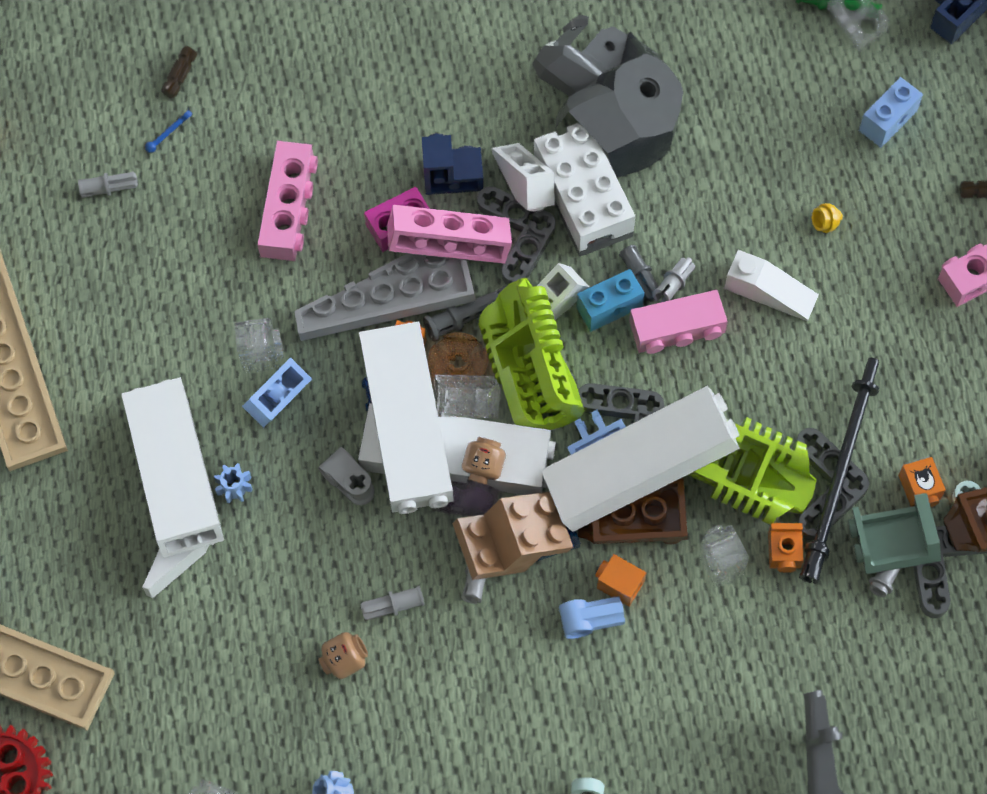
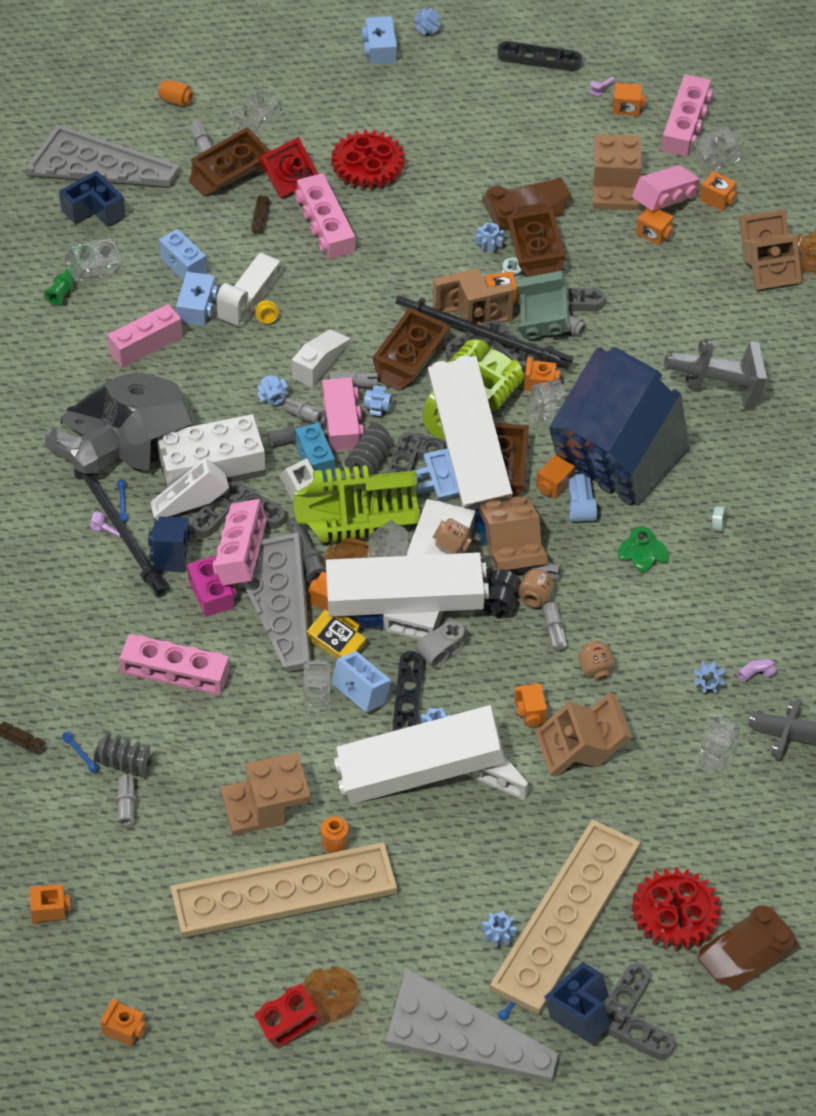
camera: 85 degrees left, 15 degrees down
(68, 392) = (334, 834): none -> orange brick
(115, 315) = (262, 798): none -> medium nougat bracket
(157, 171) = (124, 755): none -> dark grey piece
(224, 647) = (583, 734): none -> medium nougat bracket
(269, 586) = (531, 704): none -> orange brick
(275, 444) = (408, 696): none -> black beam
(342, 363) = (336, 635): none -> piece
(412, 156) = (150, 573): none -> black bar
(434, 534) = (502, 589): none -> black wheel
(441, 573) = (536, 588): none -> medium nougat head
(478, 94) = (98, 524): none -> lavender hand
(492, 119) = (121, 484): none -> blue hinge
(522, 699) = (643, 552): none -> green plate
(622, 360) = (370, 449): none -> dark grey piece
(673, 638) = (621, 425): none -> dark blue windscreen
(699, 241) = (272, 390): none -> light blue gear
(705, 359) = (377, 400): none -> light blue gear
(738, 330) = (358, 379): none -> light grey axle
(756, 92) = (144, 335): none -> bright pink brick
(798, 385) = (409, 348): none -> reddish brown slope
(840, 130) = (196, 298): none -> light blue brick
(854, 192) = (239, 301): none -> white beam
(886, 445) = (472, 298): none -> medium nougat bracket

